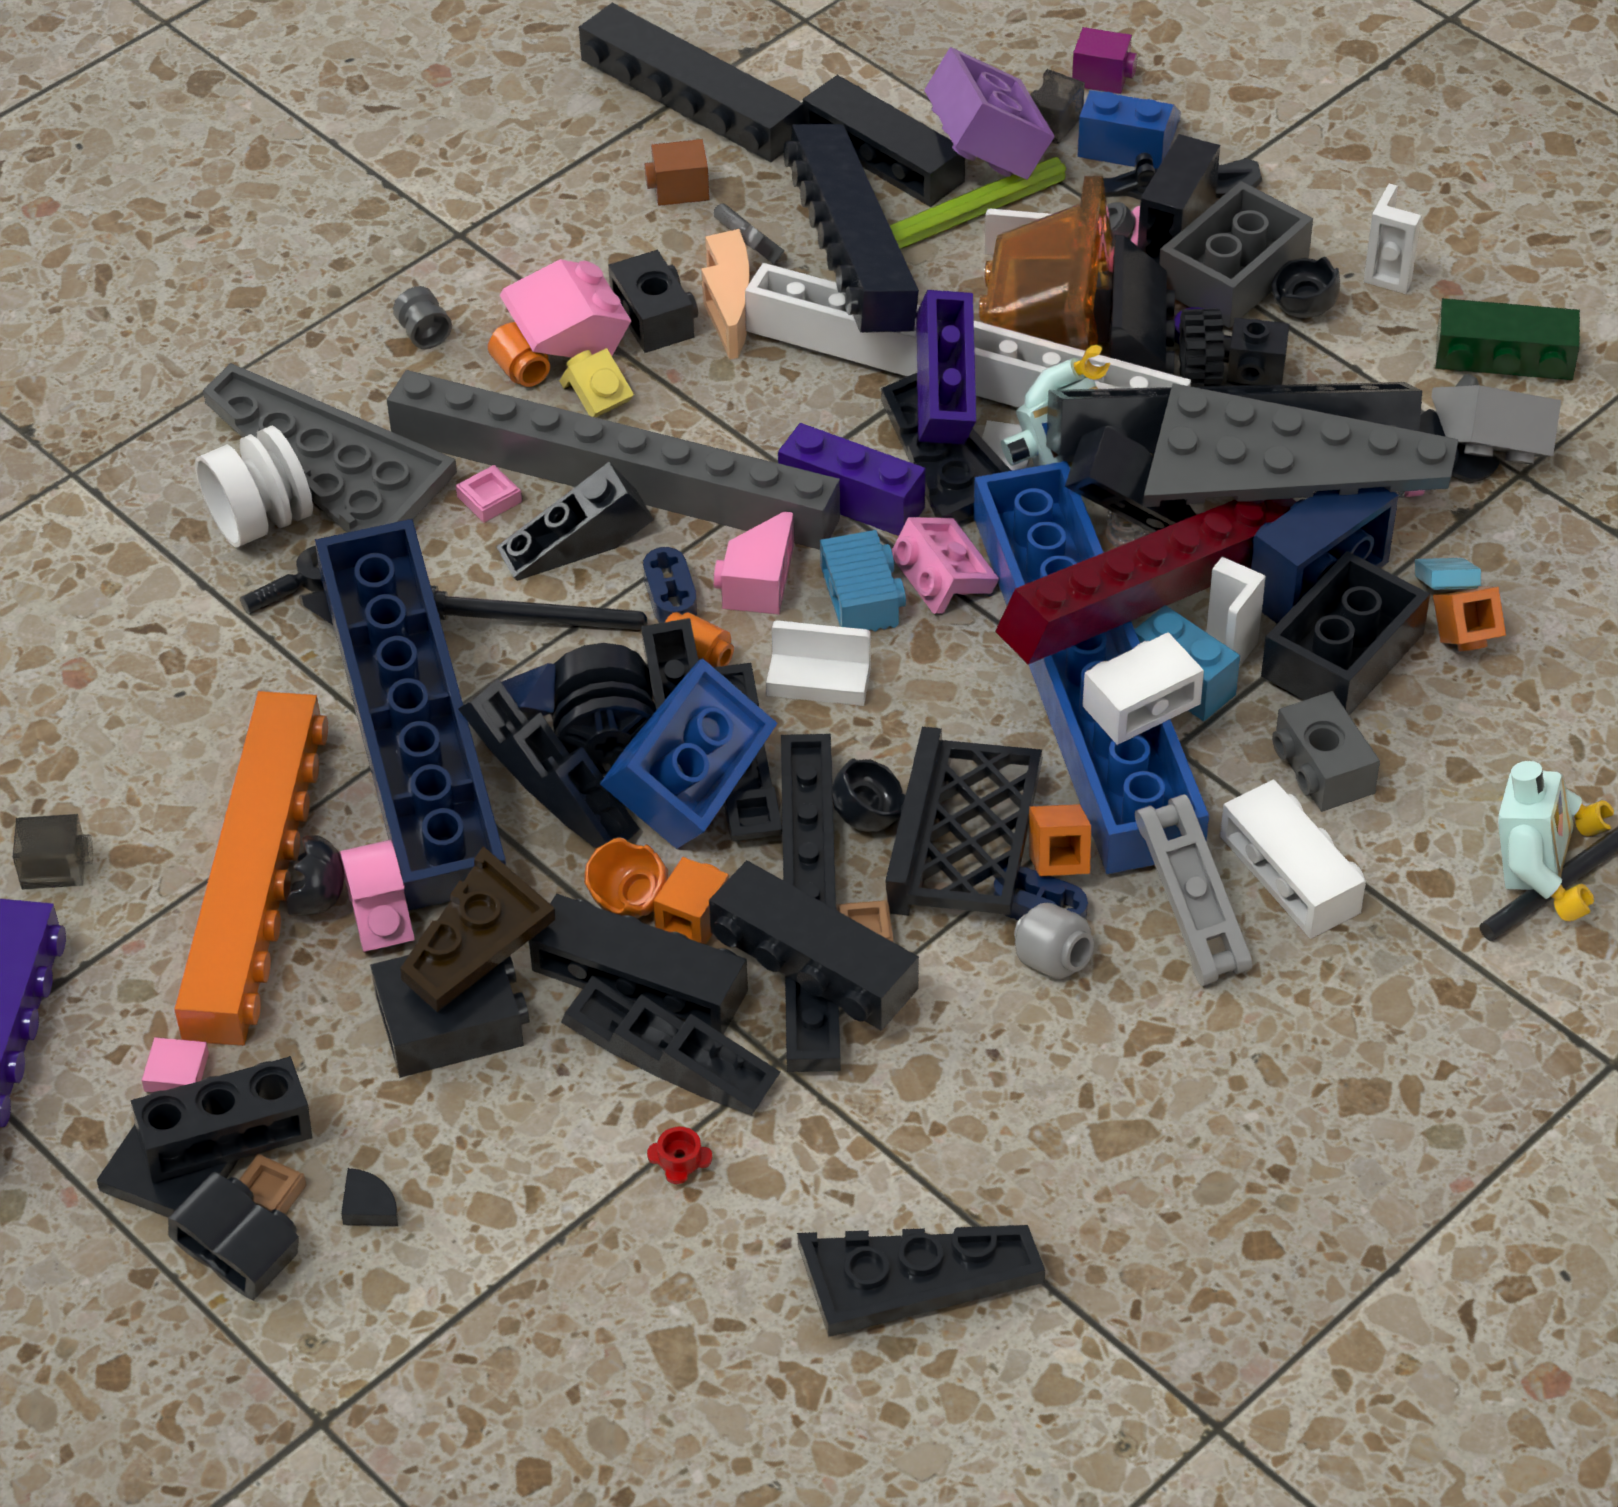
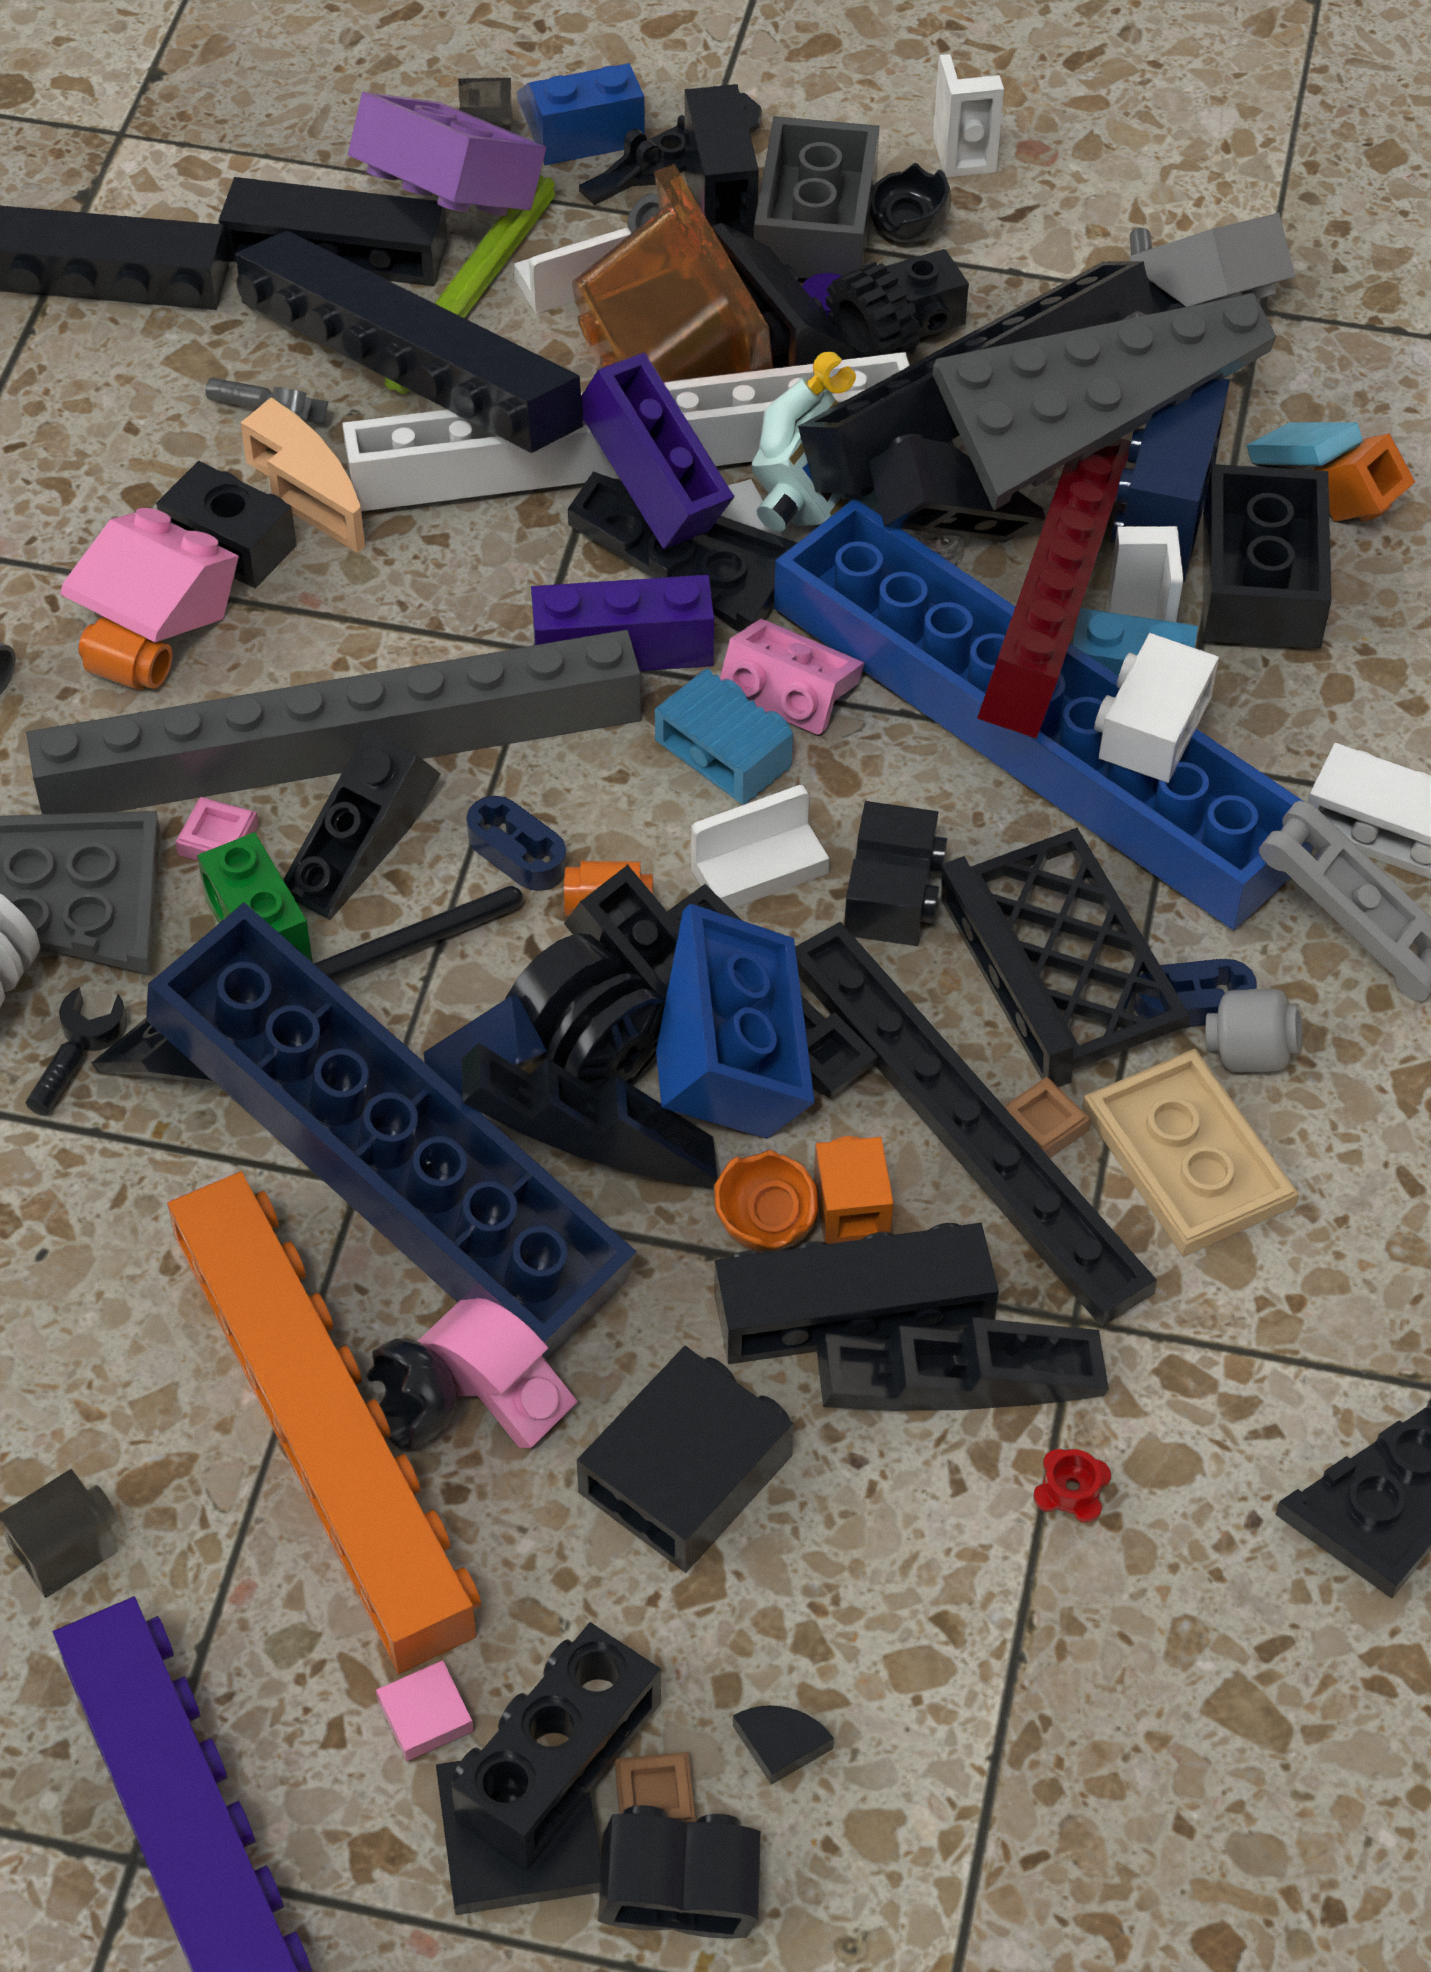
camera: 35 degrees left, 5 degrees up
(464, 545) = (246, 874): none -> green brick
(479, 928) = (677, 1353): dark brown wing -> none
(597, 382) = (240, 645): light yellow bracket -> none
(678, 172) = (135, 362): dark orange brick -> none
(757, 567) = (603, 774): bright pink slope -> none
(814, 945) = (1042, 1168): black brick -> none
(867, 795) = (938, 972): black hair -> none
(891, 721) = (892, 873): none -> black brick
(957, 1001) = (1189, 1152): none -> tan tile
(1059, 840) = (1179, 916): orange brick -> none
(1103, 60) = (497, 45): magenta brick -> none
(1326, 751) = (1341, 687): dark grey brick -> none
(1507, 339) = (1146, 175): dark green brick -> none

